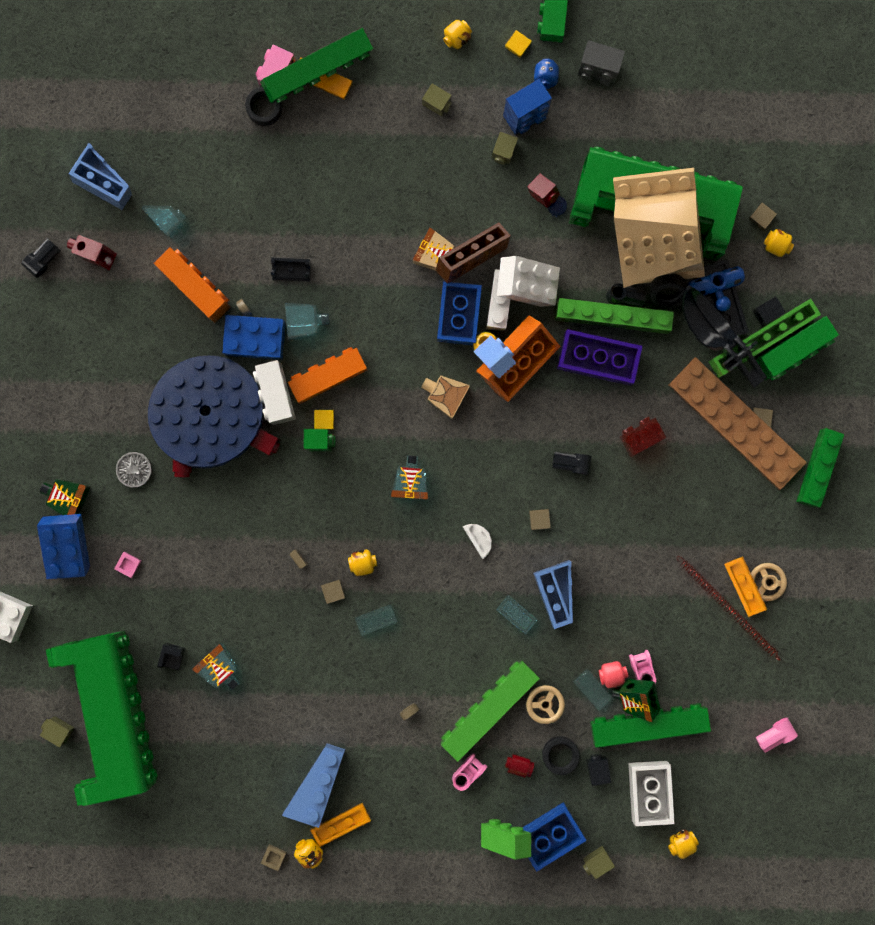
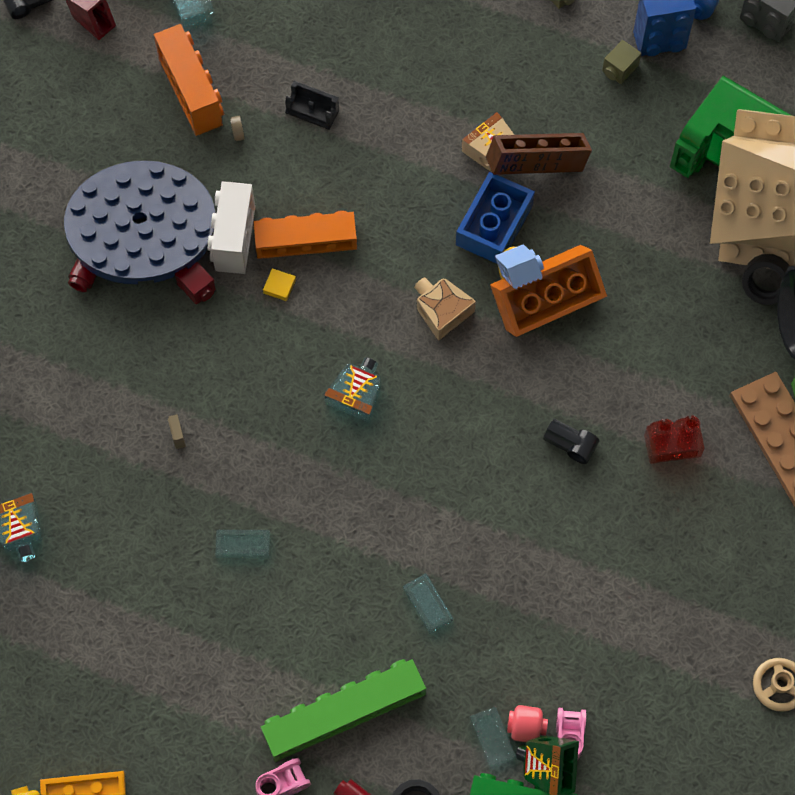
camera: 25 degrees right, 20 degrees down
(133, 469) = (23, 260): light grey wheel -> none
(254, 337) = (235, 159): blue brick -> none
(303, 320) = (302, 165): clear light blue torso -> none
(314, 792) = (73, 723): medium blue wedge -> none
(319, 440) = (262, 294): green brick -> none
(333, 591) = (202, 489): dark tan tile -> none
(362, 562) = (254, 465): yellow head -> none
(409, 711) = (236, 672): dark tan tile -> none
(480, 538) = (417, 492): white tile -> none
(498, 308) = (552, 220): white brick -> none
(528, 281) = (594, 206): white brick -> none
(539, 519) = (503, 496): dark tan tile -> none
(543, 190) = (651, 120): brick -> none
(551, 692) = (422, 739): tan piece -> none
(556, 593) = (490, 587): medium blue wedge -> none
(558, 207) = (662, 146): clear blue tile -> none
(599, 357) = (651, 326): dark purple brick -> none
(614, 316) = (688, 287): bright green brick -> none
(628, 296) = (711, 271): black piece -> none
(733, 610) = (714, 698): clear red piece -> none
(745, 586) = (748, 678): light orange tile -> none

